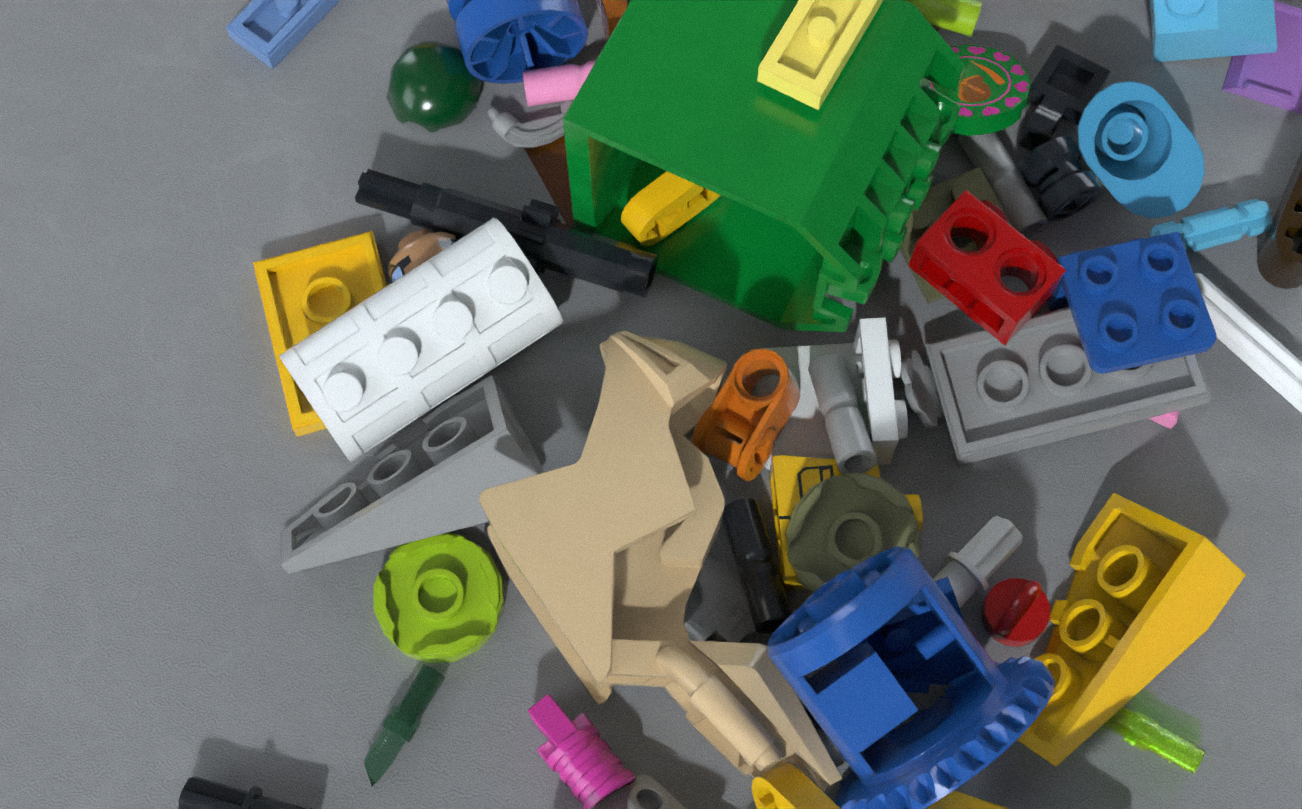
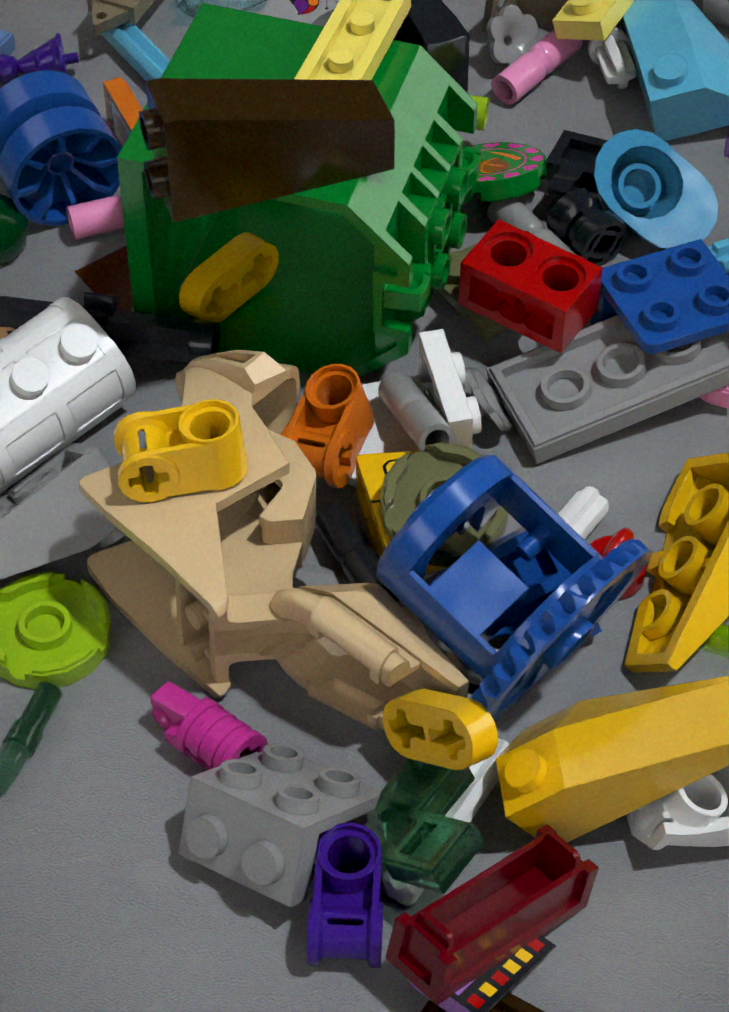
camera: 10 degrees left, 20 degrees down
(530, 133) = (85, 257): light grey piece -> none
(567, 492) = (187, 447): none -> yellow piece
(718, 143) = (259, 139): none -> dark brown slope

